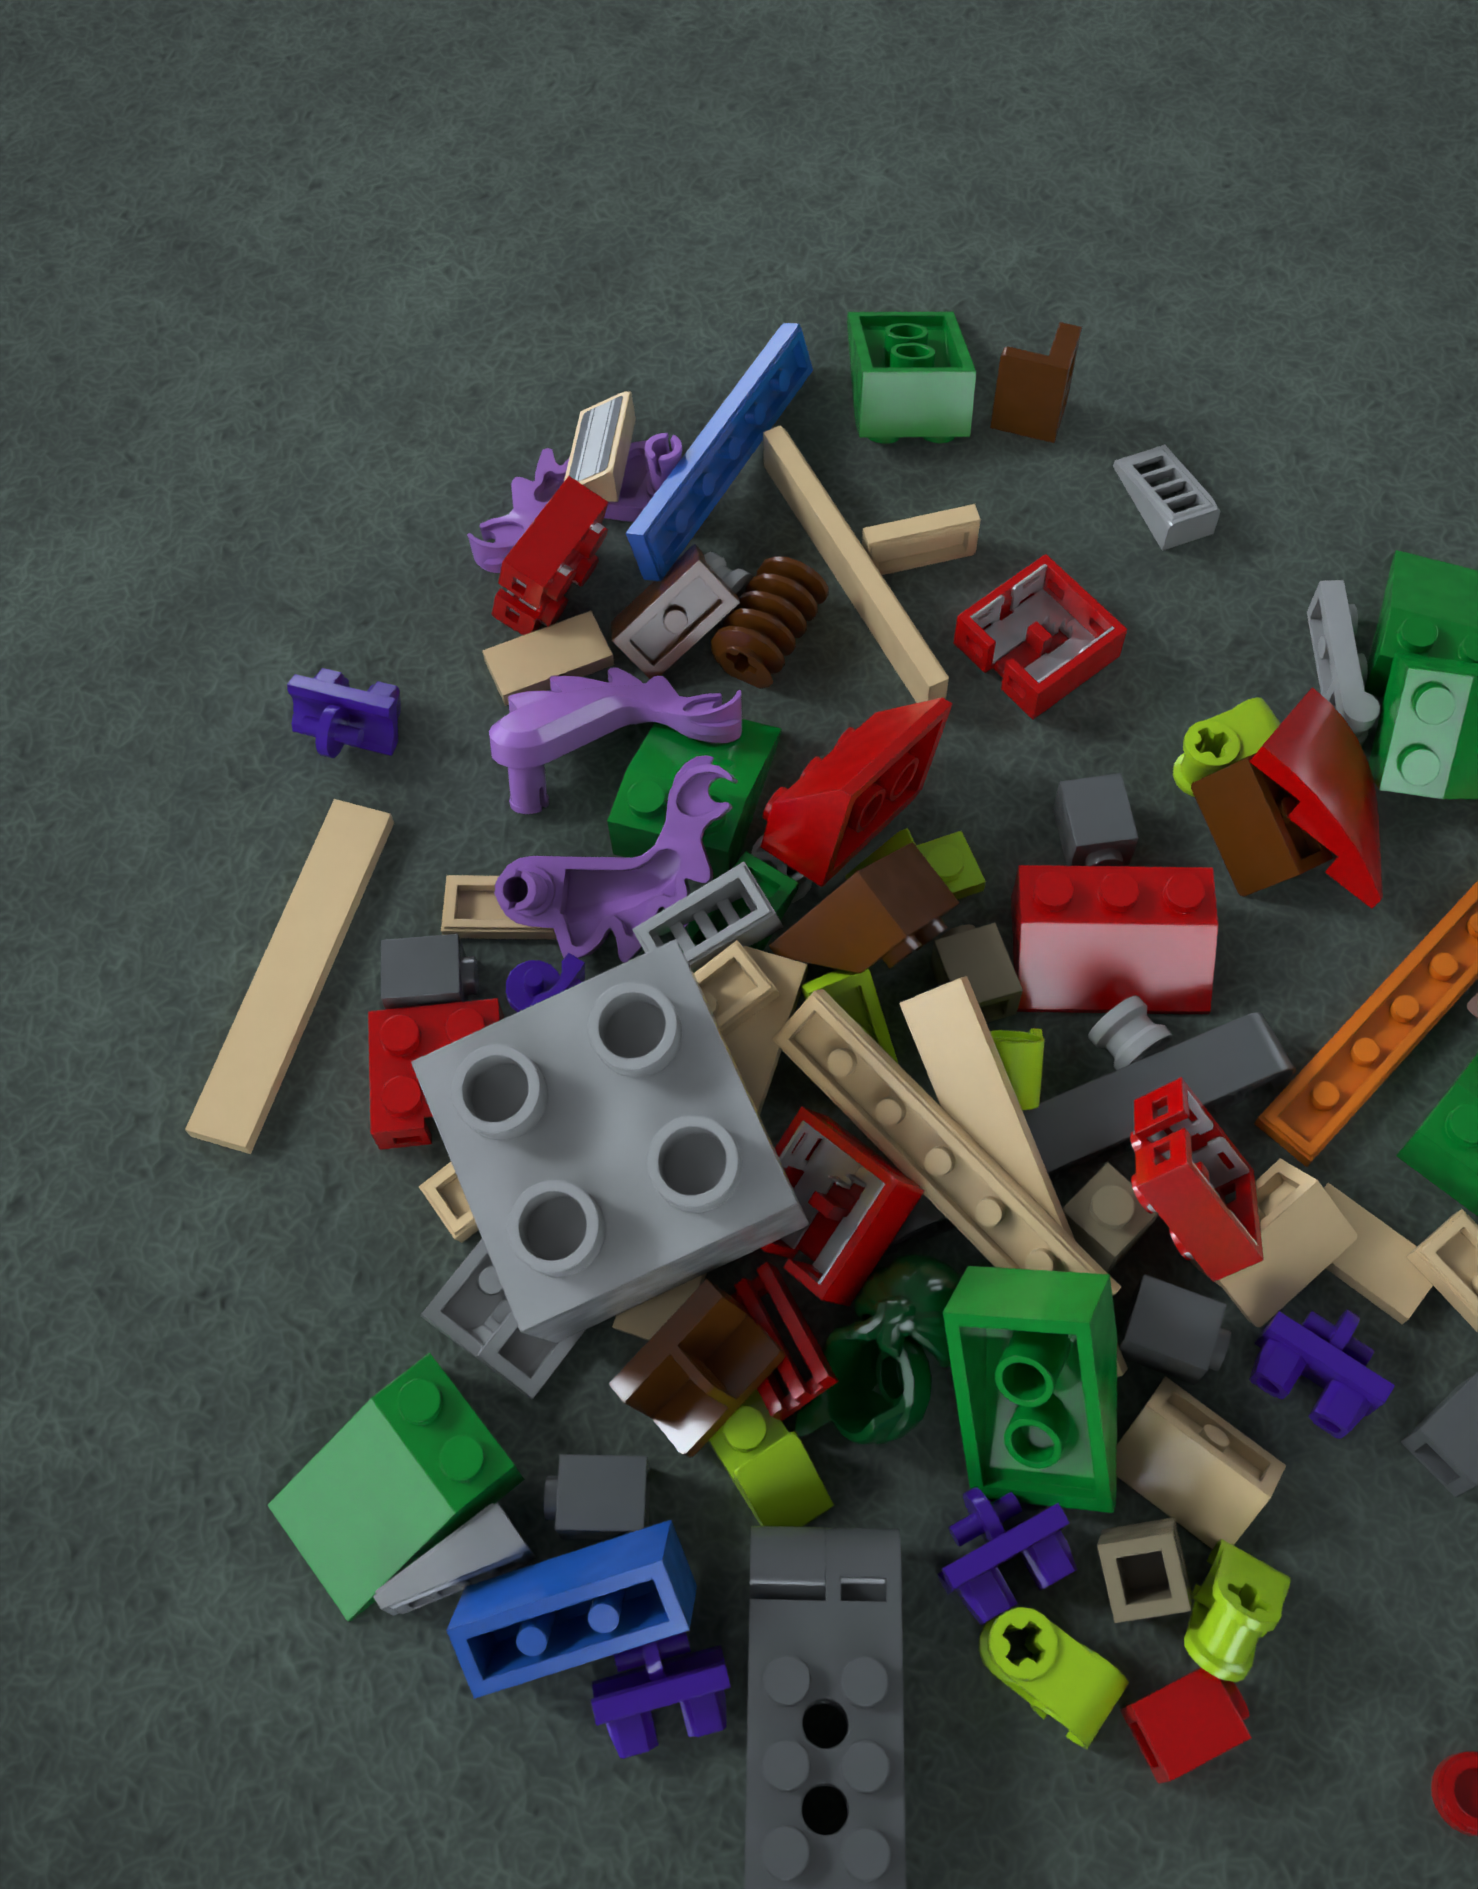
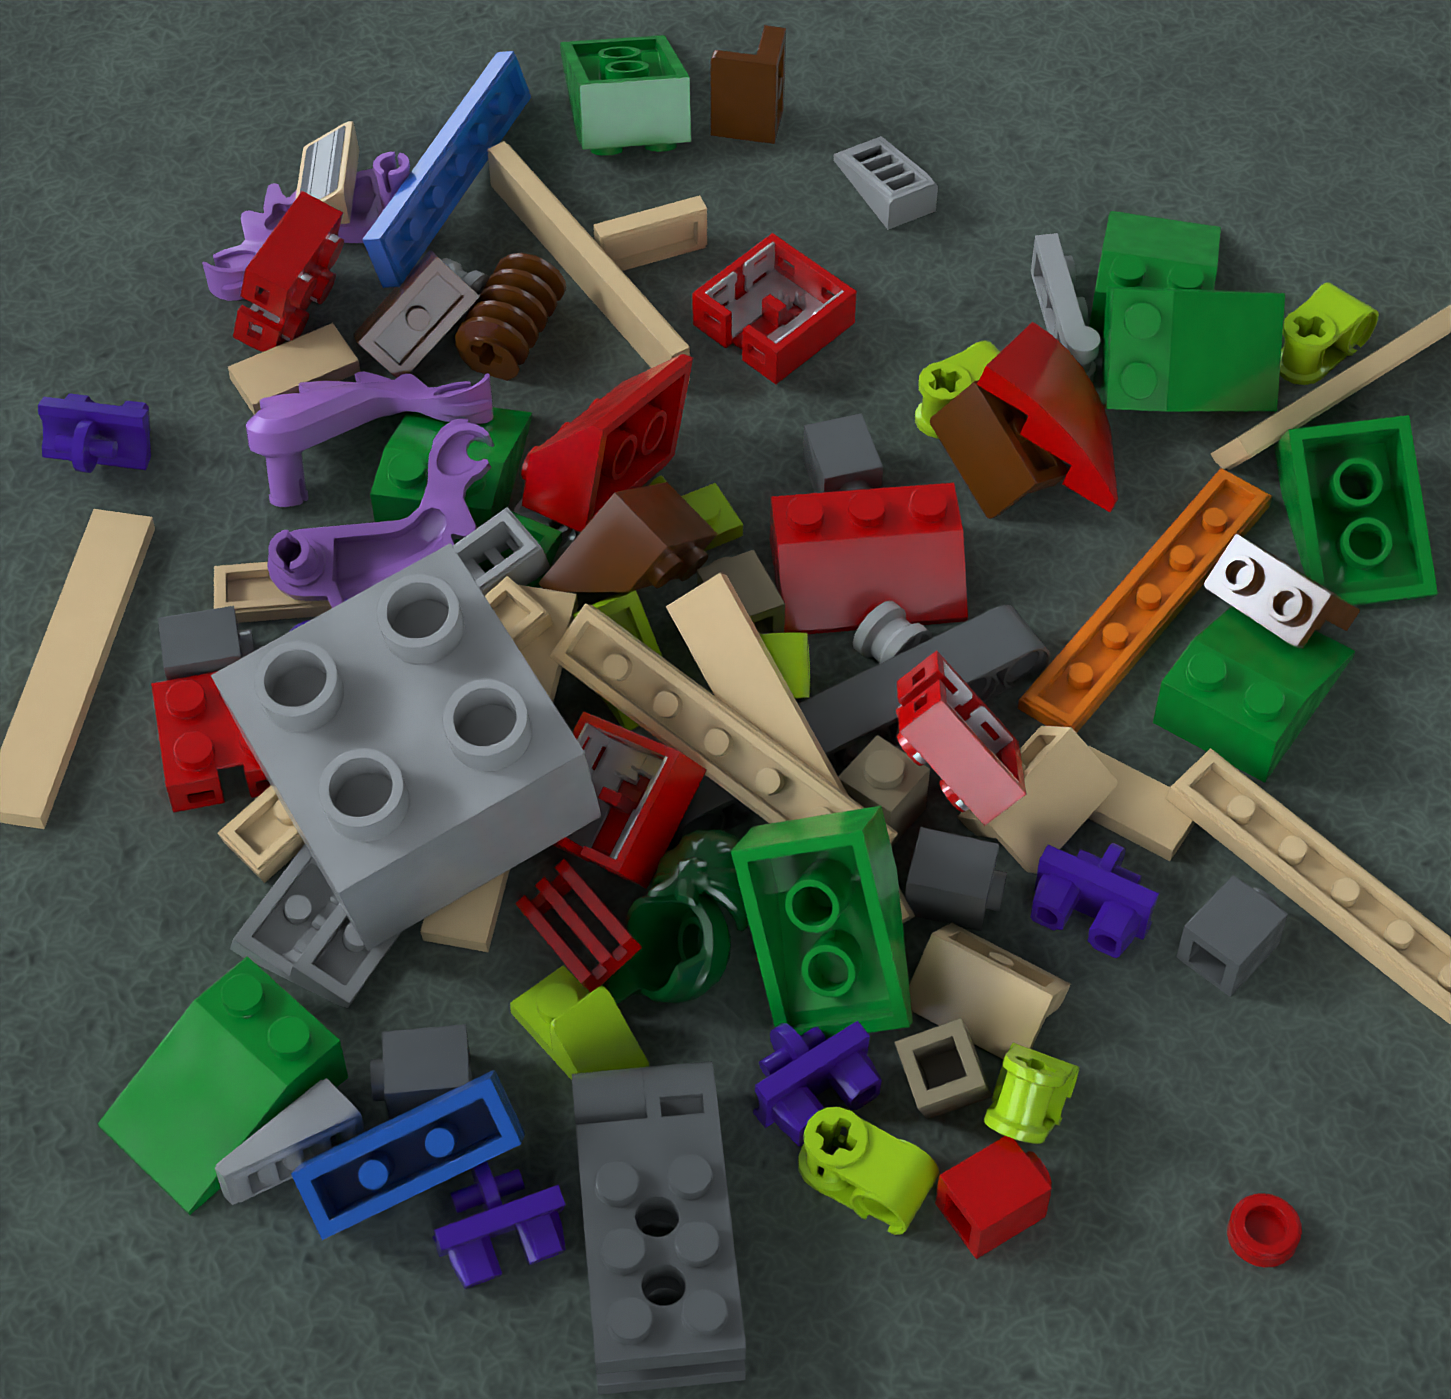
camera: 10 degrees left, 10 degrees down
(698, 1368) = (506, 951): reddish brown panel -> none

